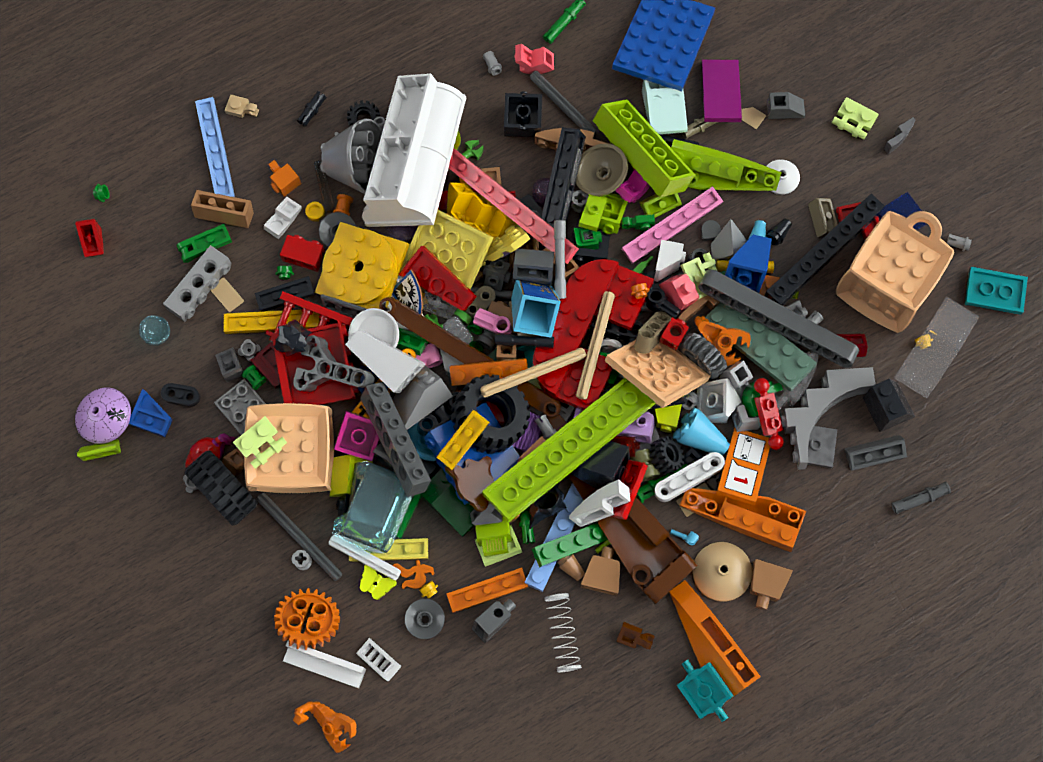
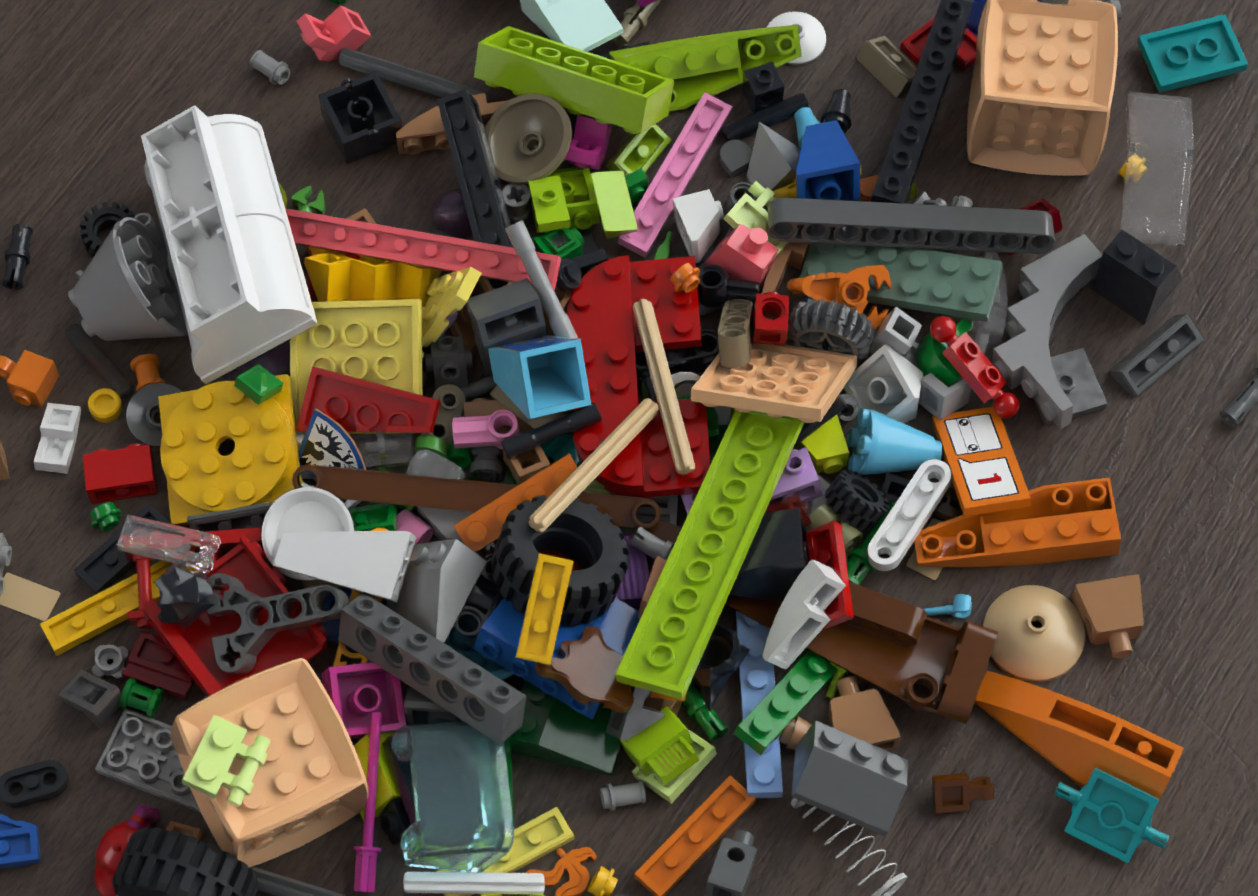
camera: 30 degrees left, 10 degrees down
(301, 305) = (168, 542): none -> clear plate
(321, 514) = (367, 854): none -> dark pink piece
(388, 242) = (258, 384): none -> green tile
(463, 549) = (622, 795): none -> light grey pin
(577, 602) = (849, 777): none -> dark grey slope
(580, 258) = (568, 276): none -> black plate
(628, 228) = (614, 203): none -> lime slope
(738, 215) = (767, 116): none -> black axle
(745, 199) = (762, 86): none -> black brick

